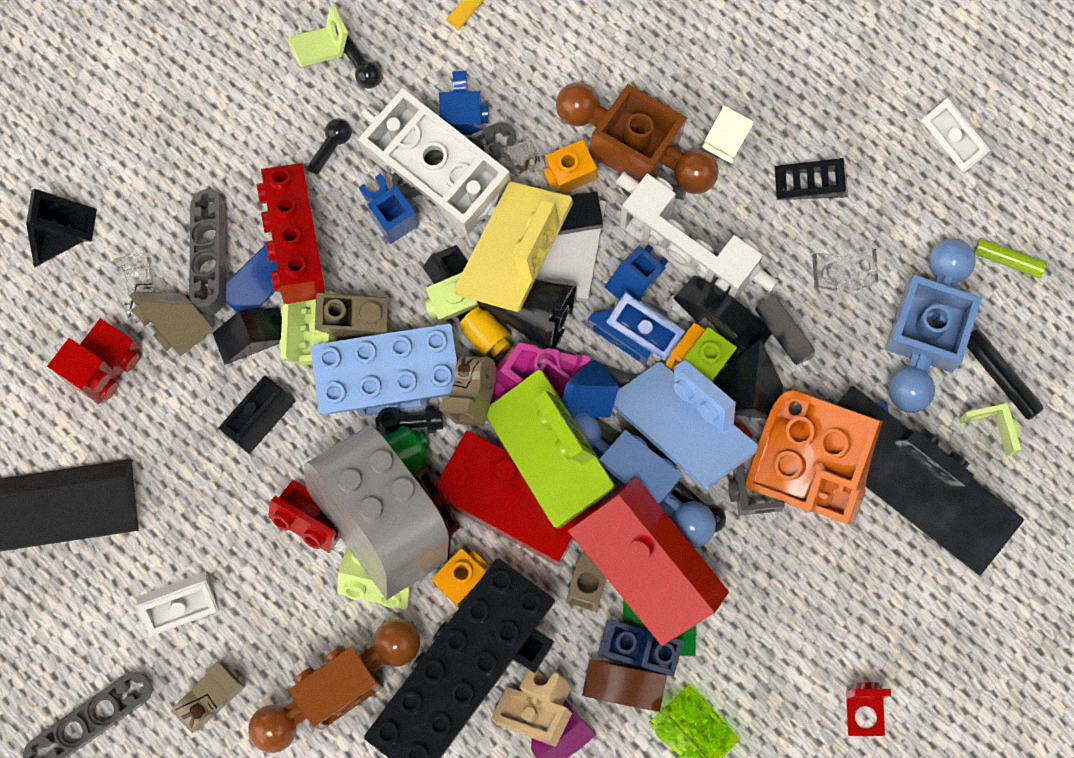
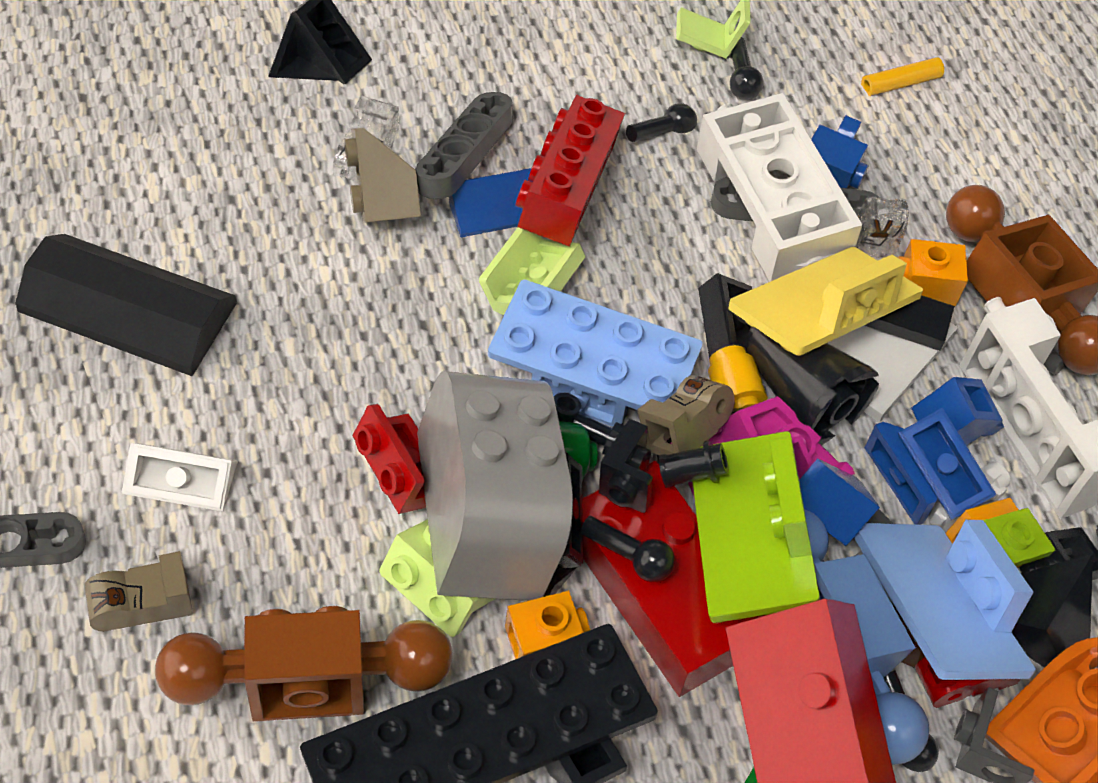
camera: 20 degrees right, 20 degrees down
(96, 361) = (267, 181): red brick -> none
(248, 333) = (455, 244): black slope -> none
(257, 414) = (412, 332): black slope -> none
(350, 315) = (587, 272): dark tan slope -> none
(390, 210) = (697, 208): blue brick -> none
(444, 302) = (714, 323): yellowish green bracket -> none
(450, 447) = (624, 467): none -> black bracket
(492, 428) = (694, 465): none -> black pin
(501, 505) = (651, 559): none -> black bar
(586, 585) = (708, 730): dark tan leg -> none
(708, 301) = (1056, 506): black slope -> none

